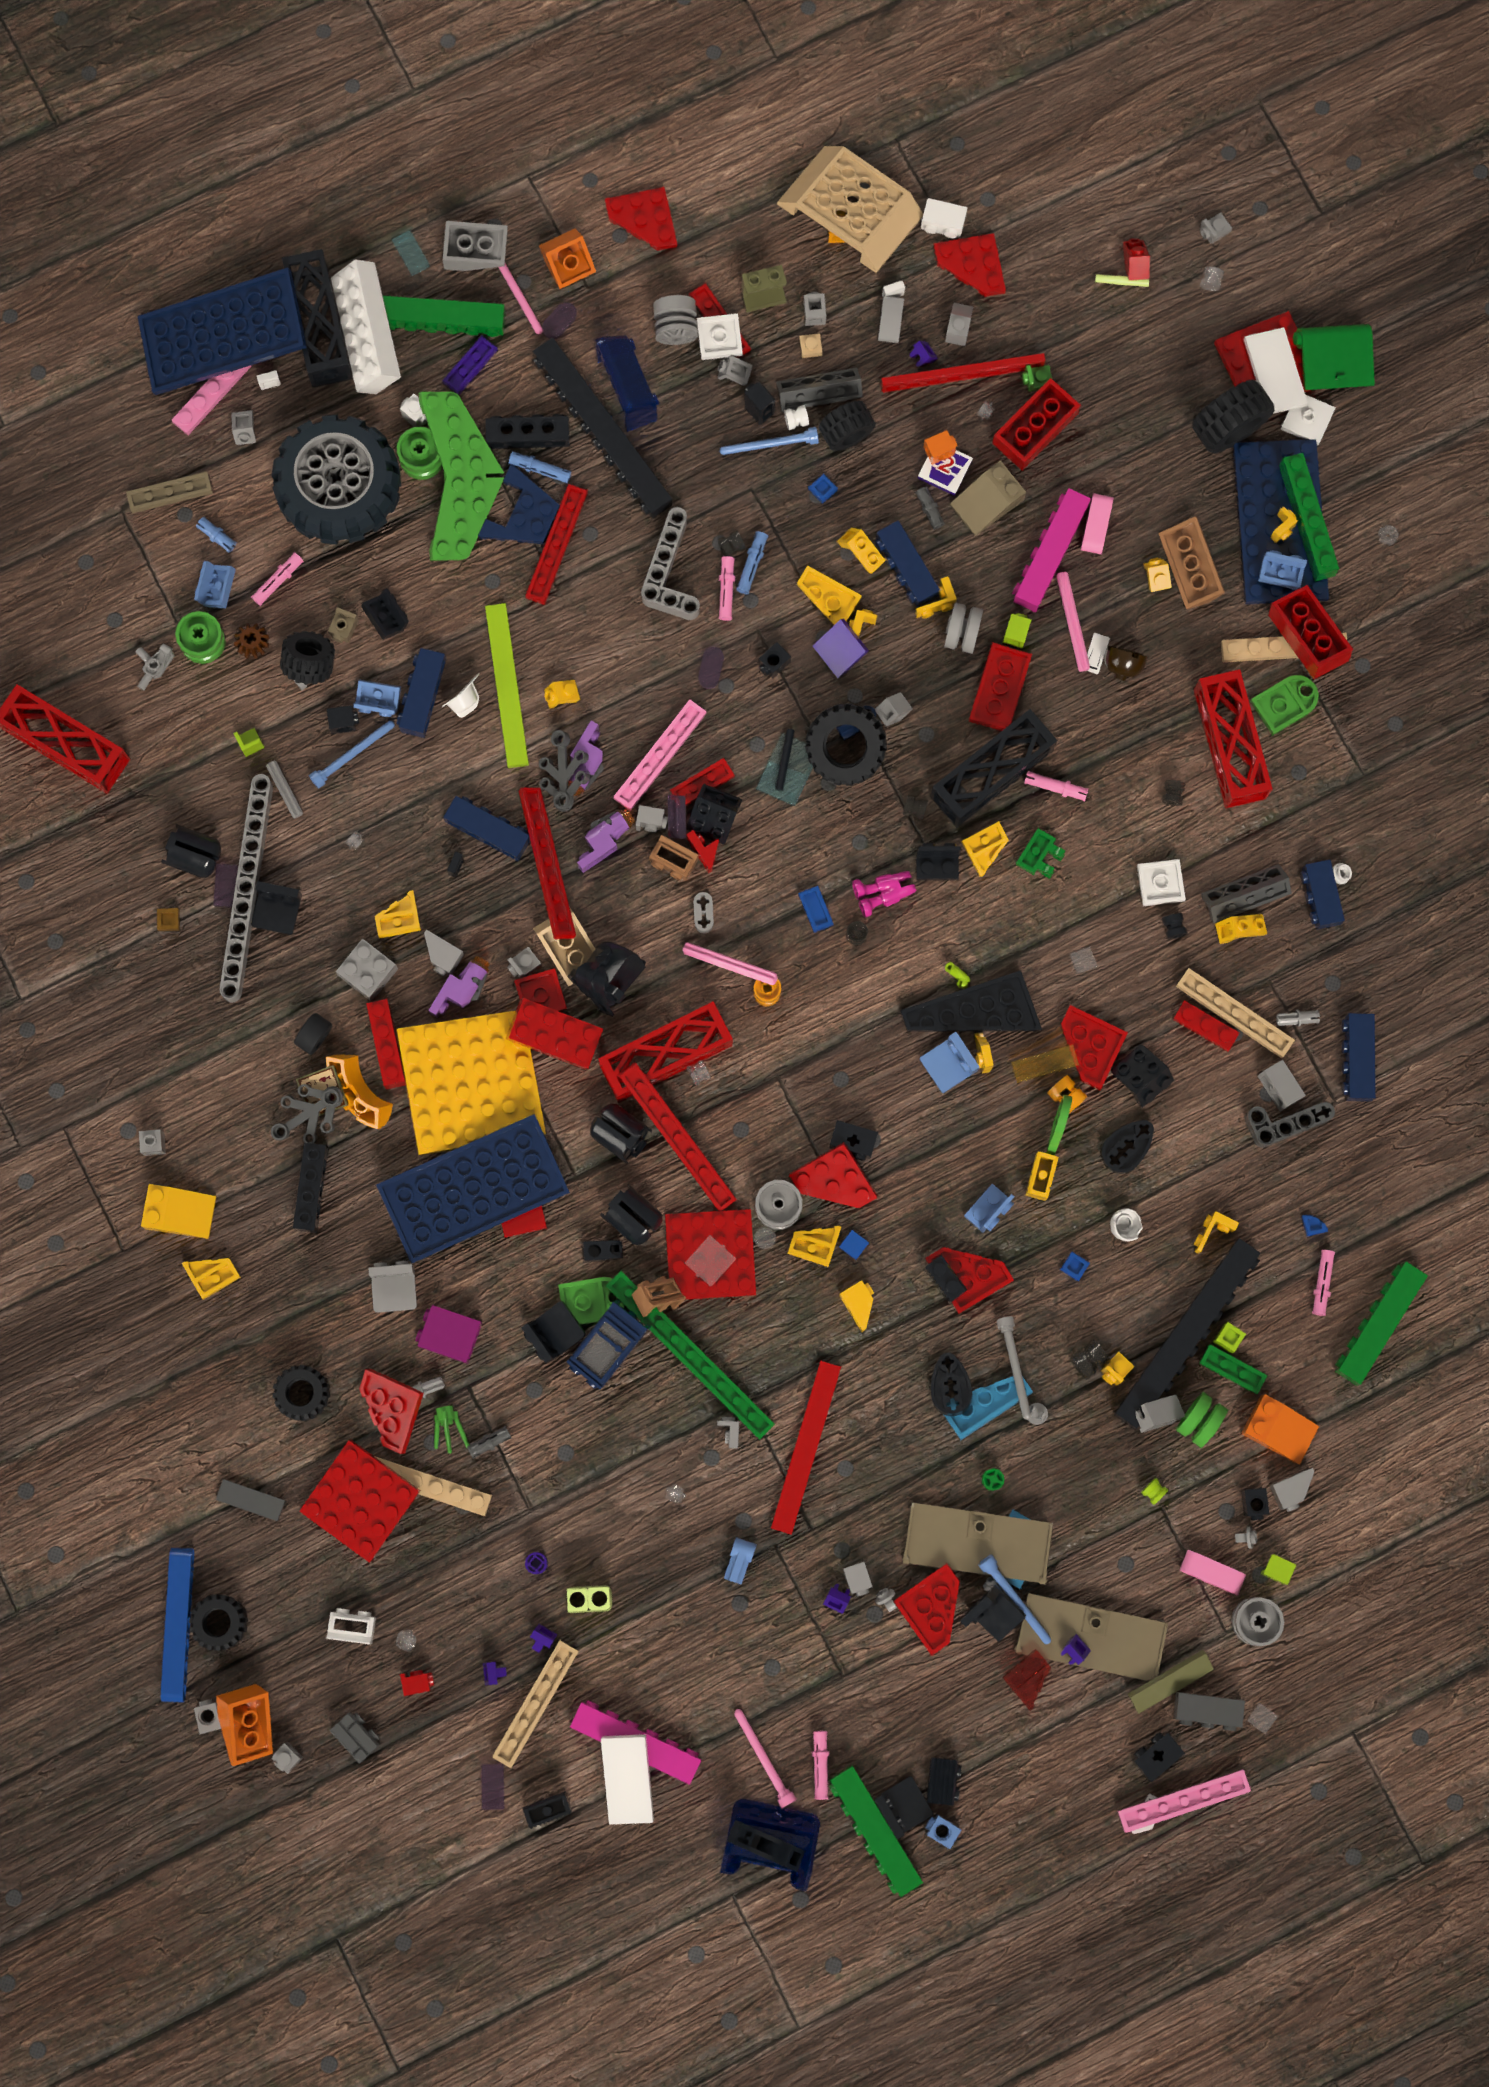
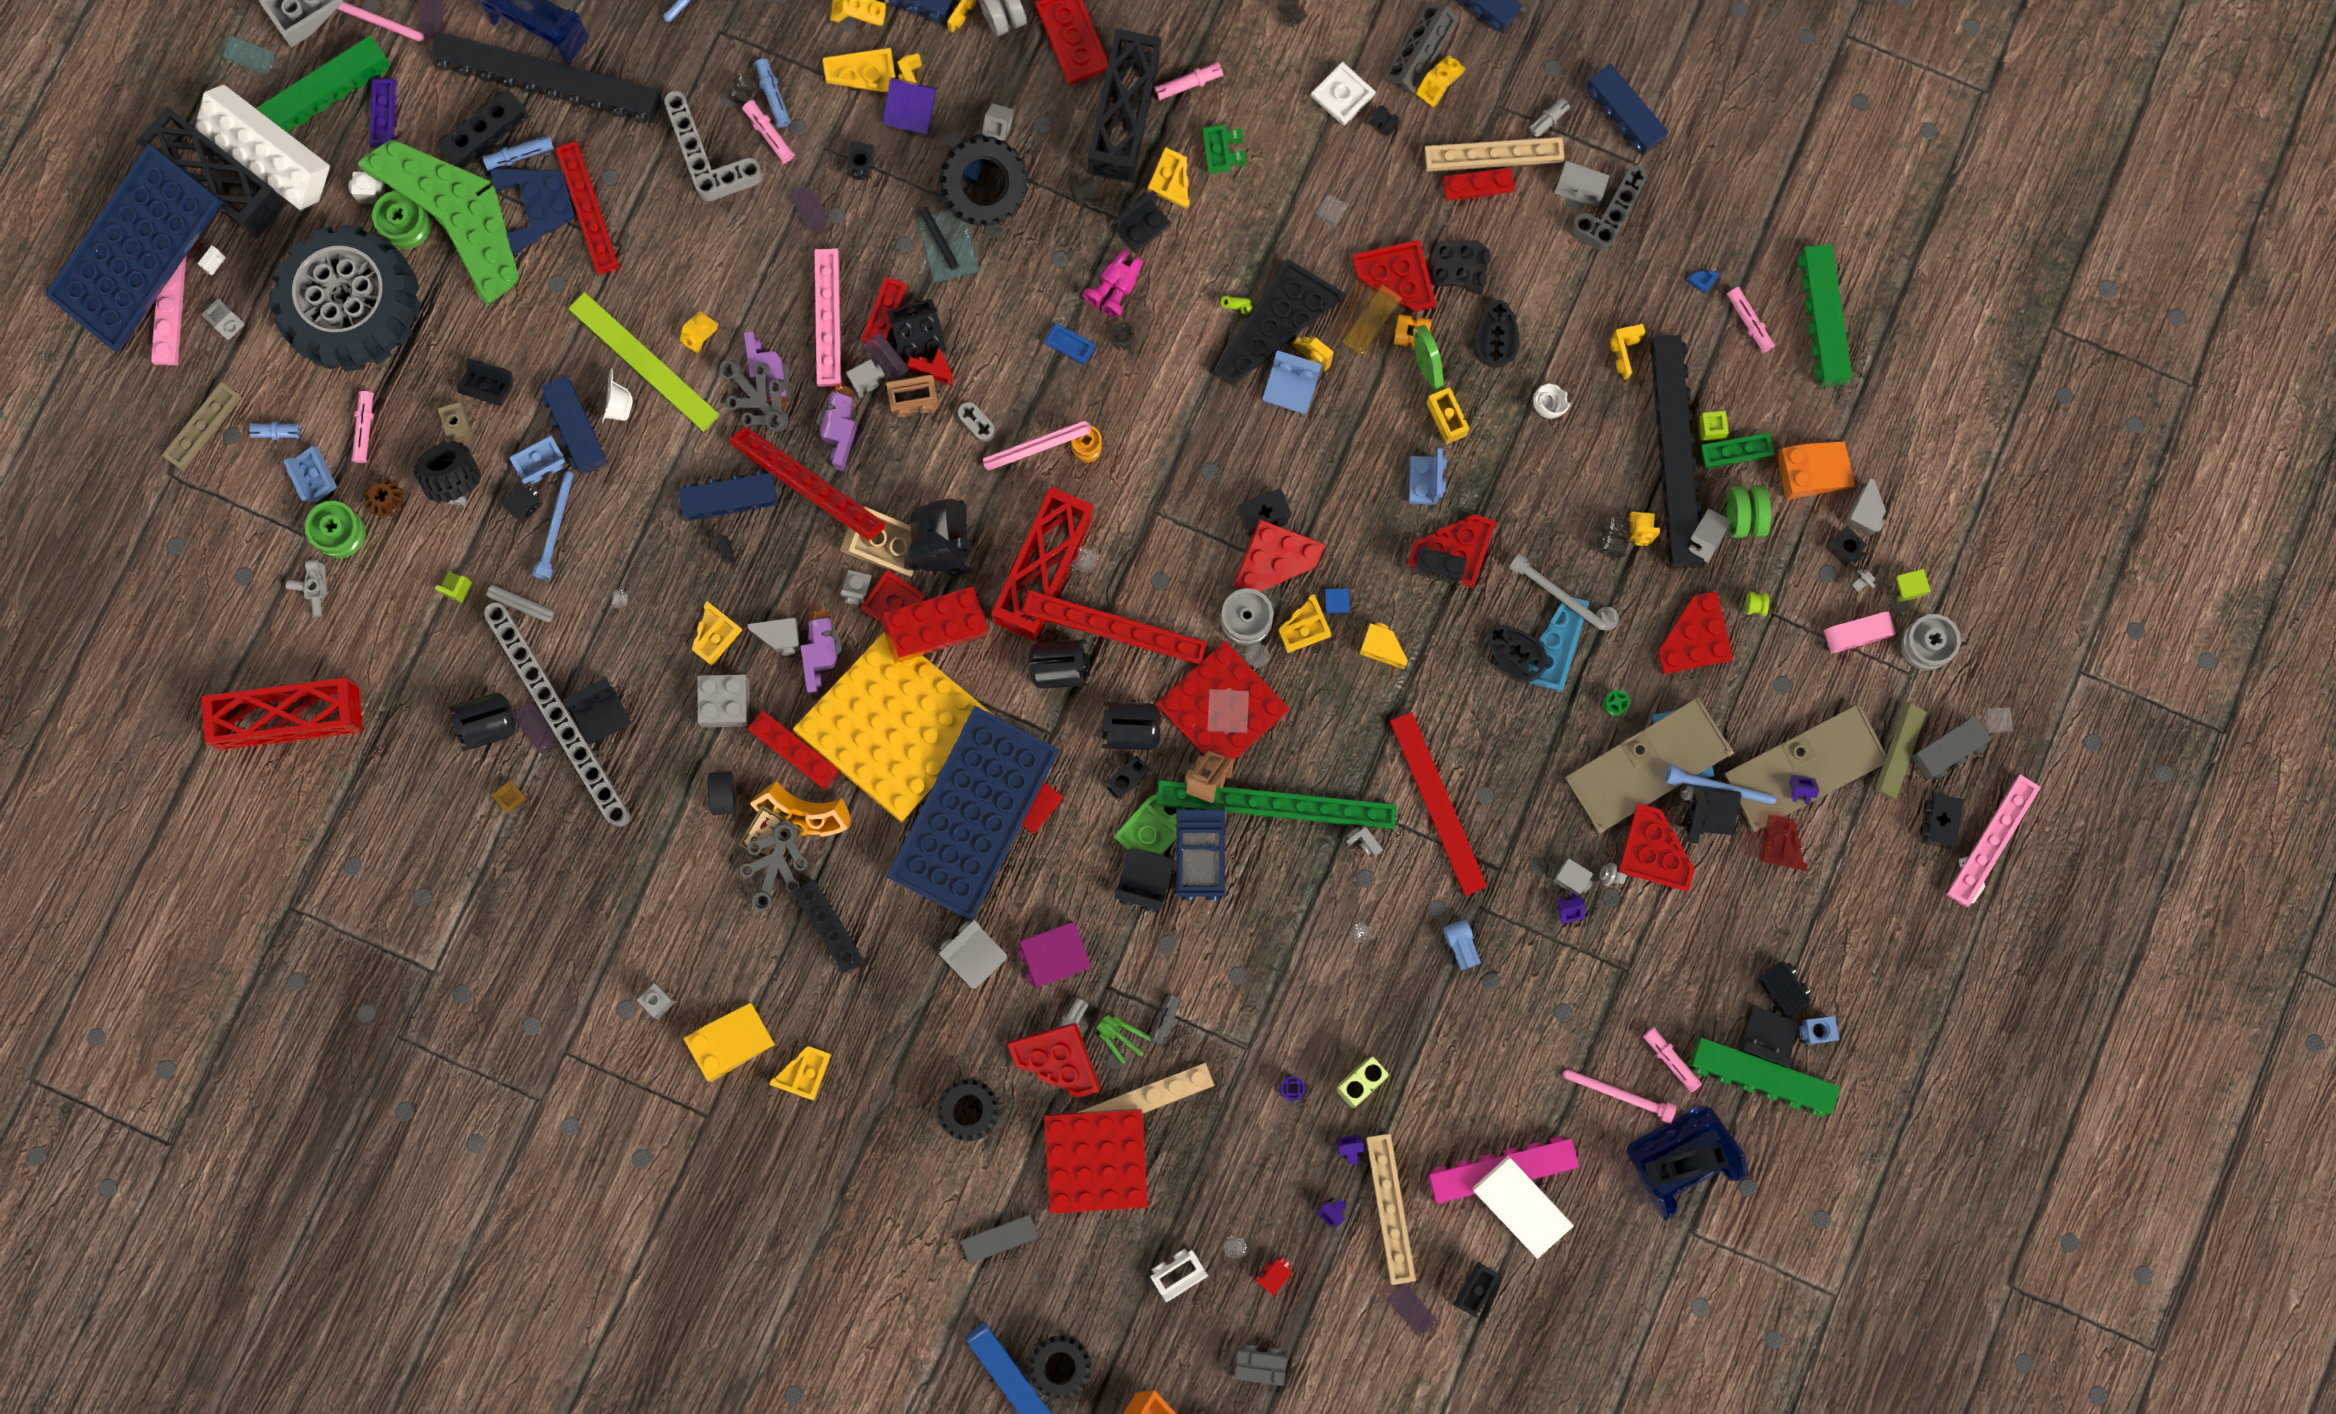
camera: 40 degrees left, 0 degrees up
(1074, 1266) = (1536, 470): blue tile -> none
(1091, 1480) = (1697, 637): none -> red plate

